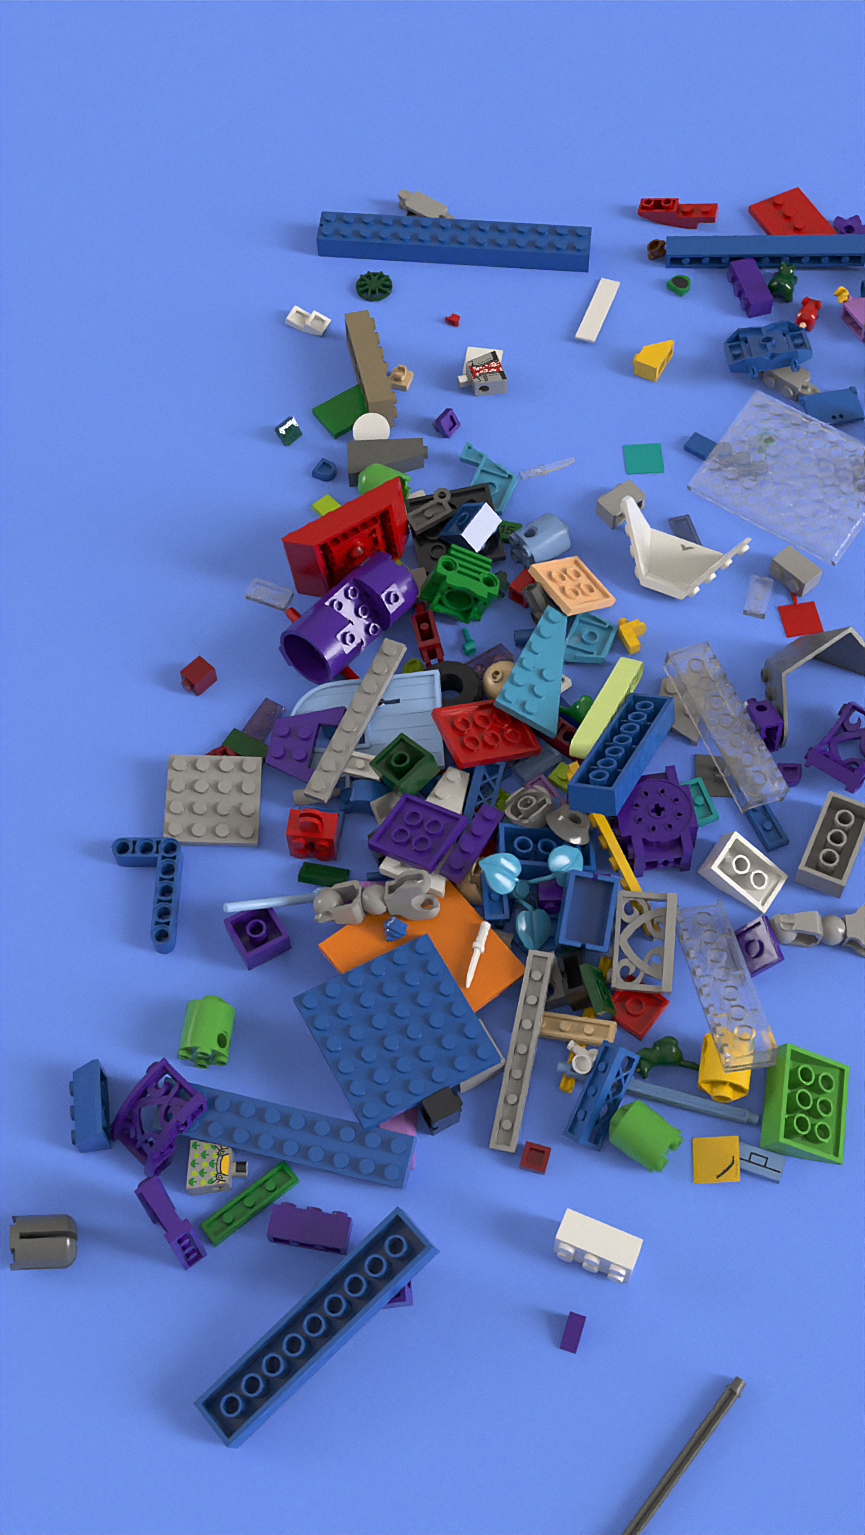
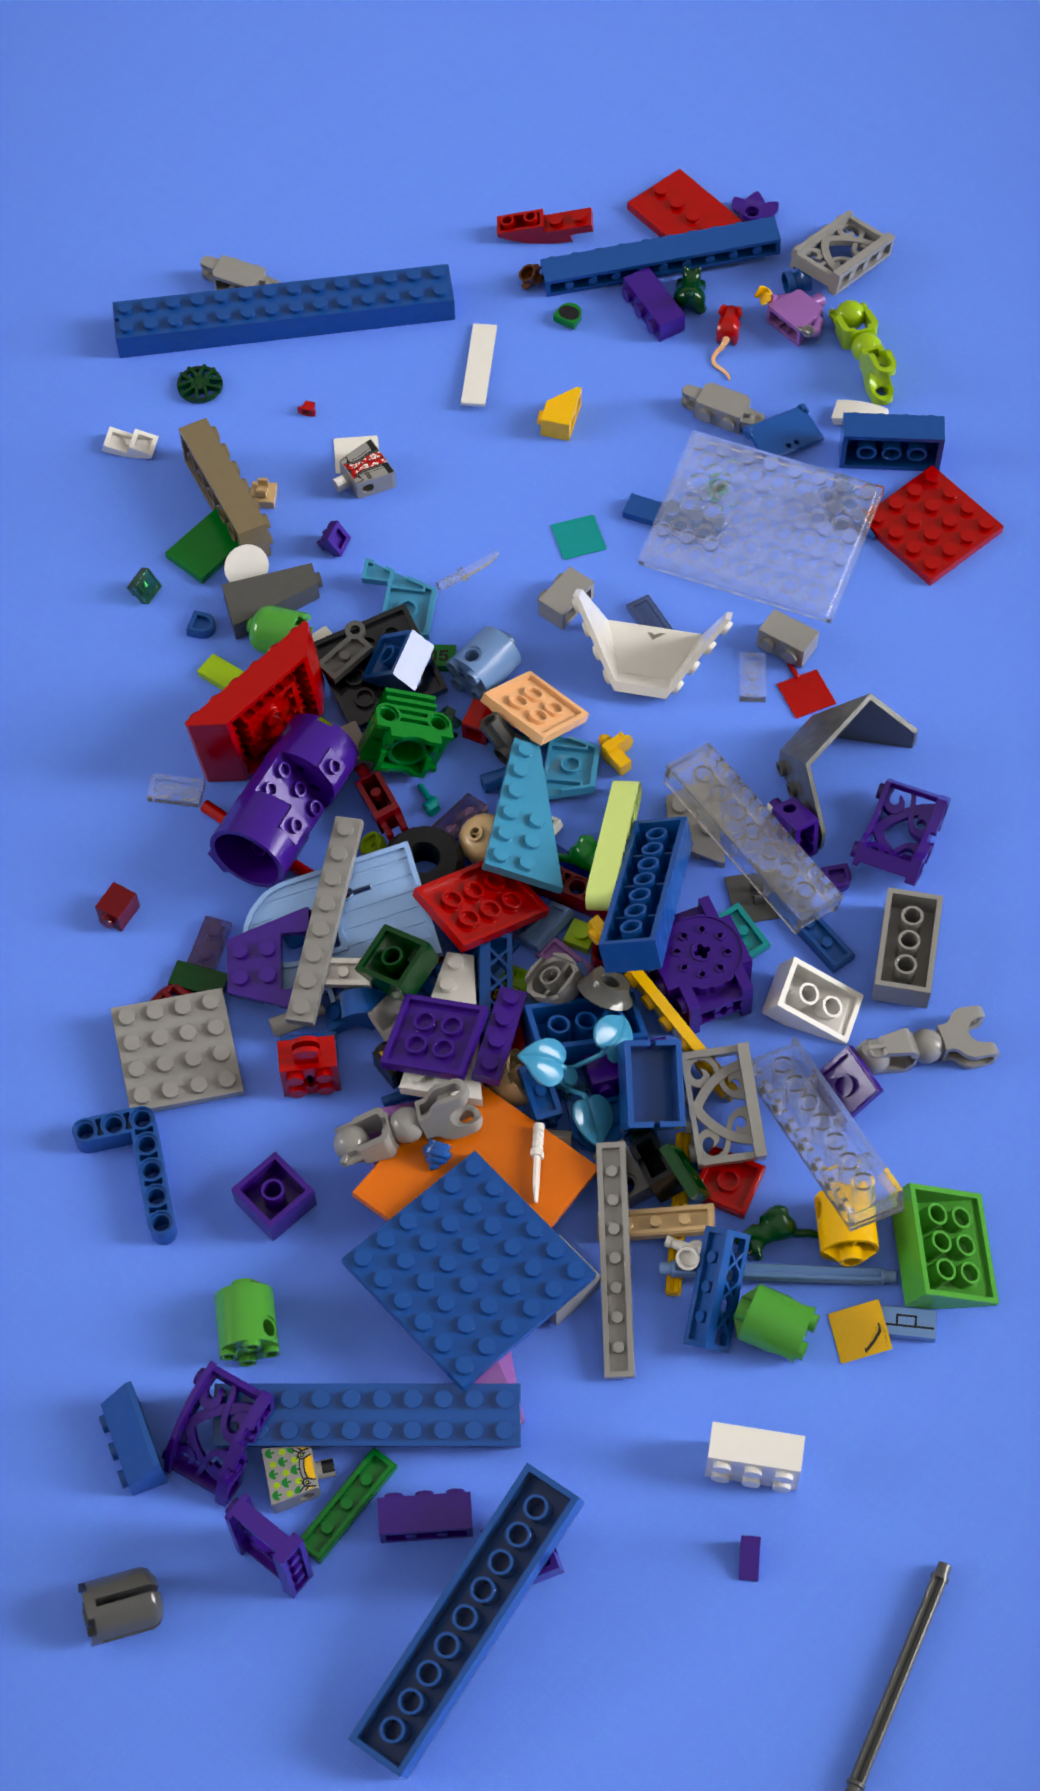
camera: 15 degrees left, 0 degrees up
(271, 902) = (286, 1154): light blue piece -> none
(322, 874) = (331, 1111): dark green tile -> none
(441, 1110) = (541, 1348): black brick -> none
(535, 1158) = (659, 1377): dark red plate -> none
(767, 348) = (698, 373): blue piece -> none

